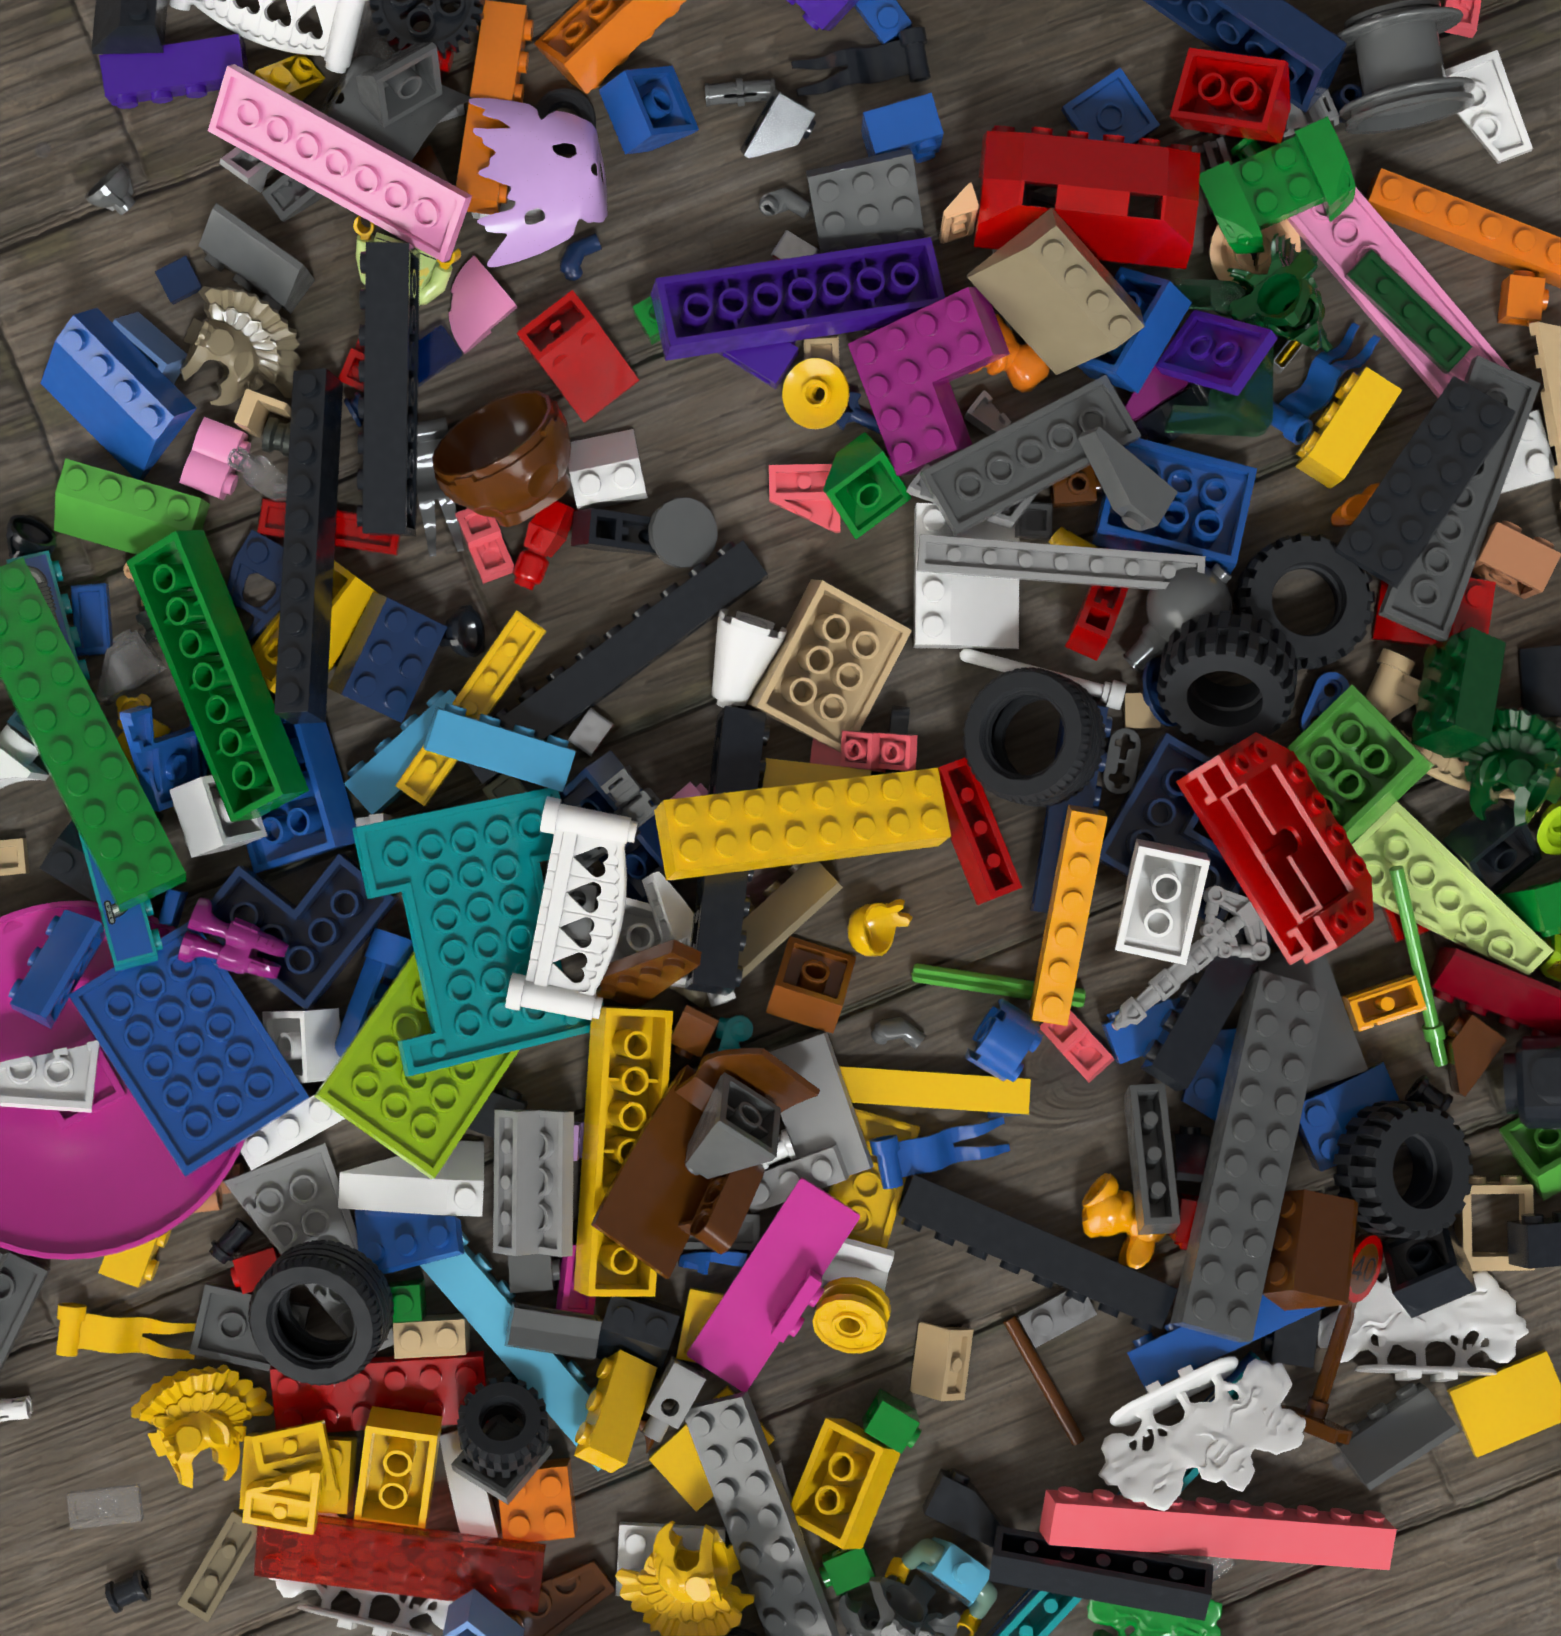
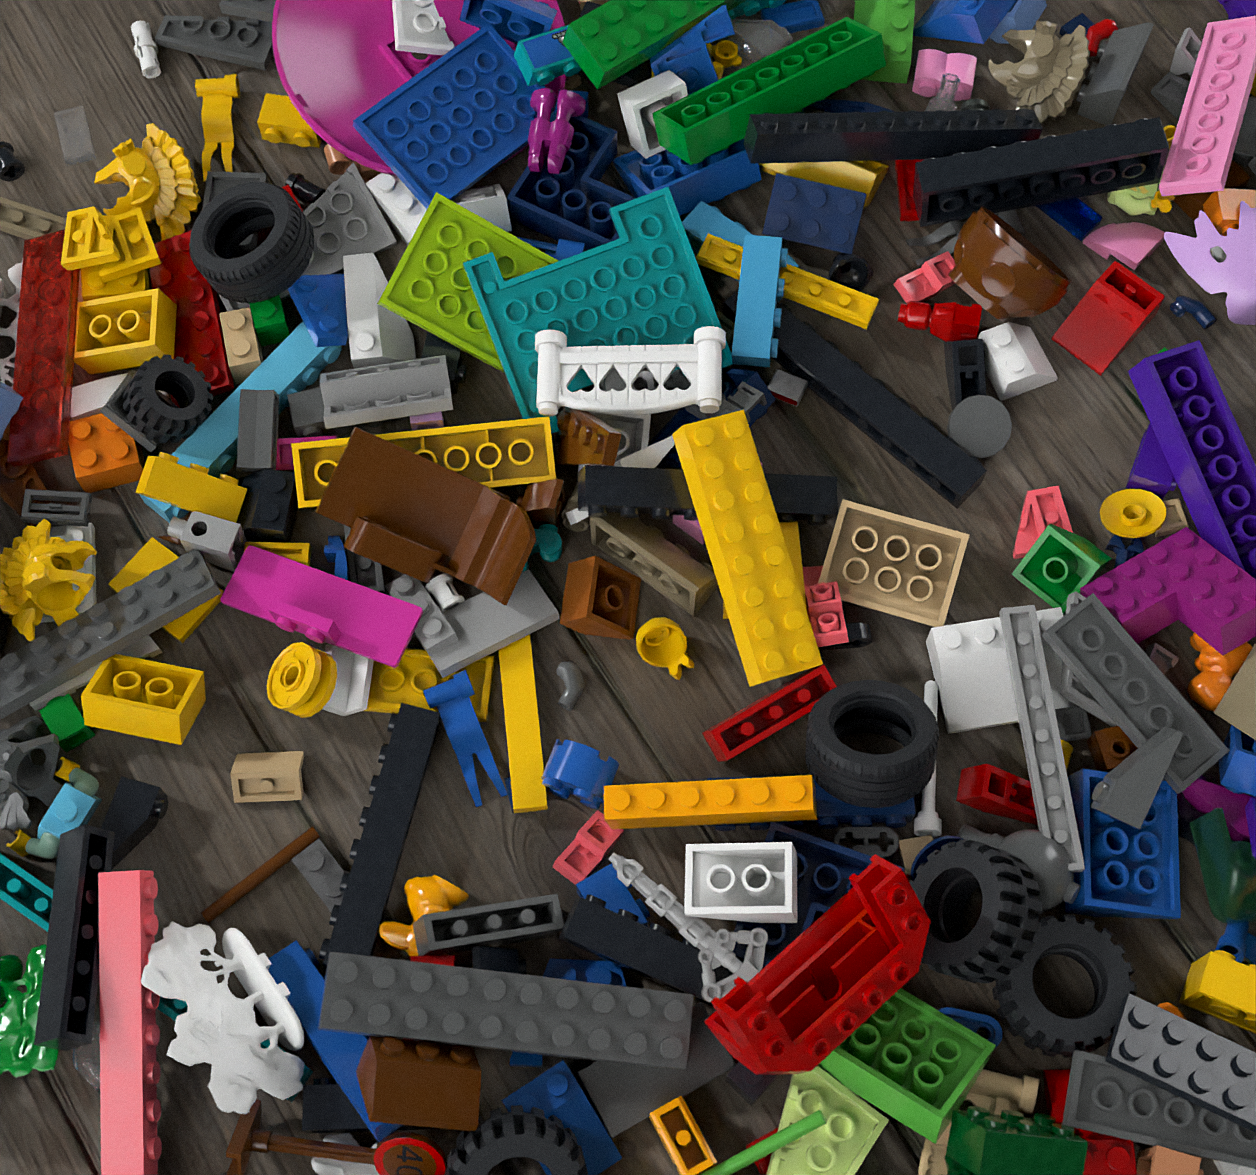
camera: 85 degrees right, 20 degrees down
(192, 261) = (1099, 32): none -> red arm
(255, 411) = (992, 85): tan panel -> none
(607, 1531) = (56, 519): none -> dark grey tile
(734, 1131) = (459, 536): dark grey slope -> none
(742, 655) = (885, 487): white cone -> none
(892, 1422) = (206, 731): green brick -> none
(982, 982) = (630, 754): bright green axle -> none

